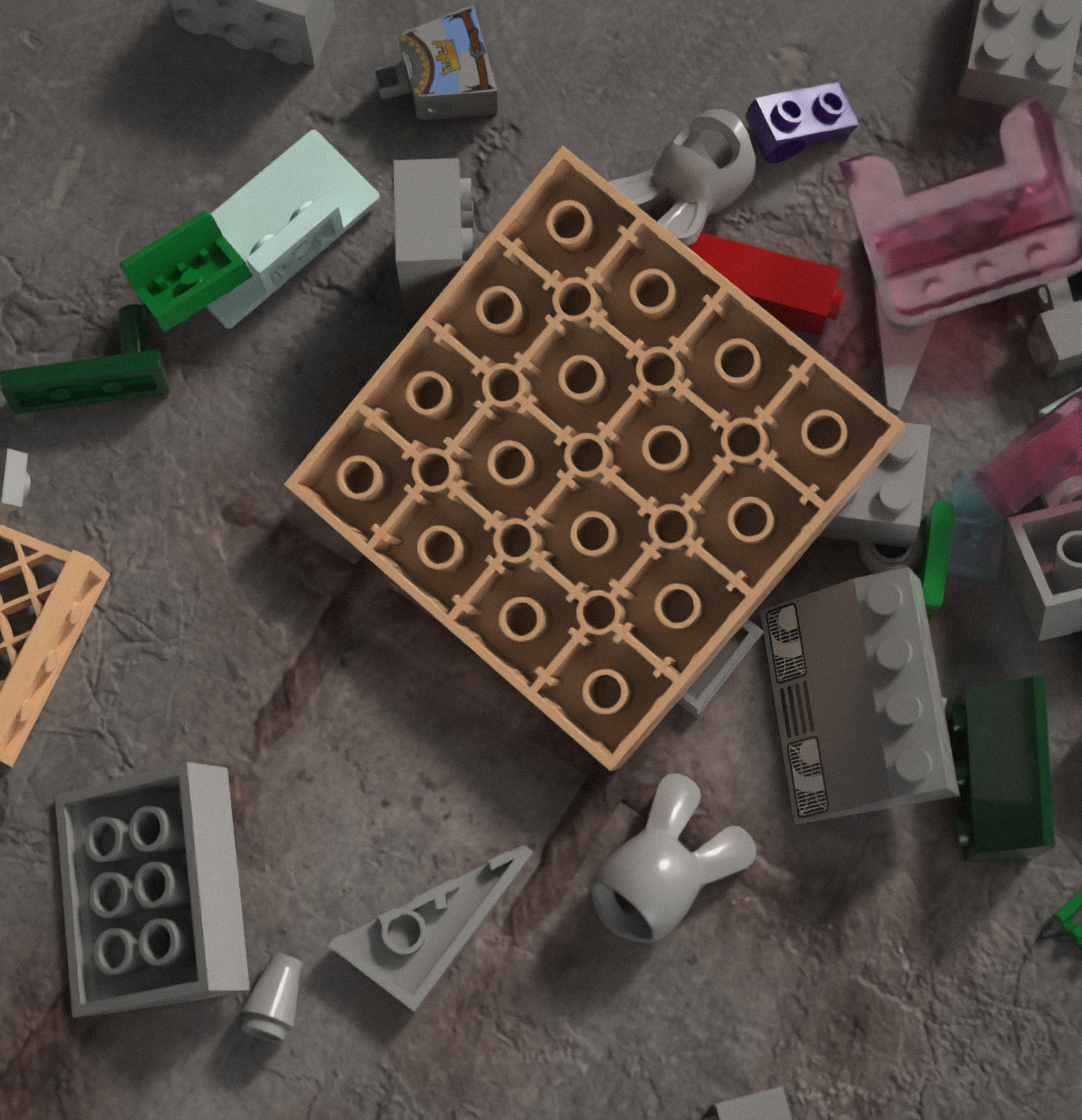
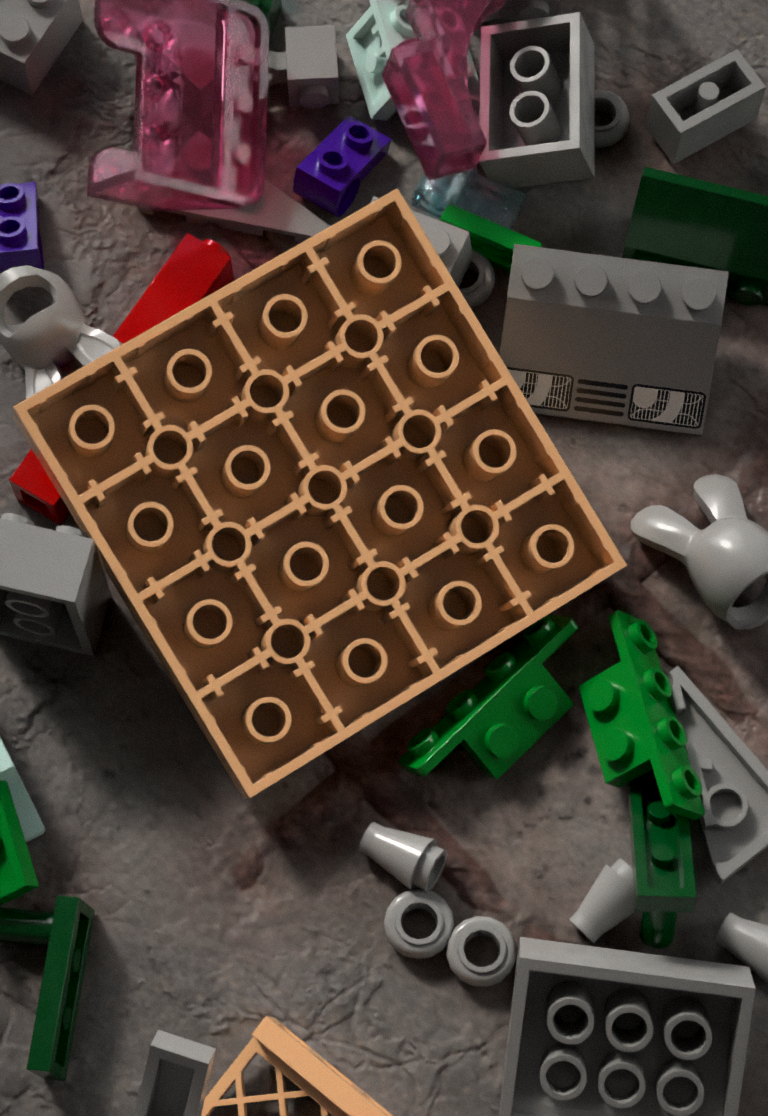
camera: 75 degrees left, 5 degrees down
(207, 660) = (414, 947): none -> light grey piece
(207, 716) = (476, 975): none -> light grey piece
(280, 647) = (405, 855): none -> light grey cone
(288, 846) = (607, 901): none -> light grey cone
(342, 874) = (659, 862): none -> dark green piece
(445, 698) = (503, 711): none -> green bracket
(467, 827) = (636, 720): none -> green bracket
(971, 392) = (339, 164): none -> dark purple plate

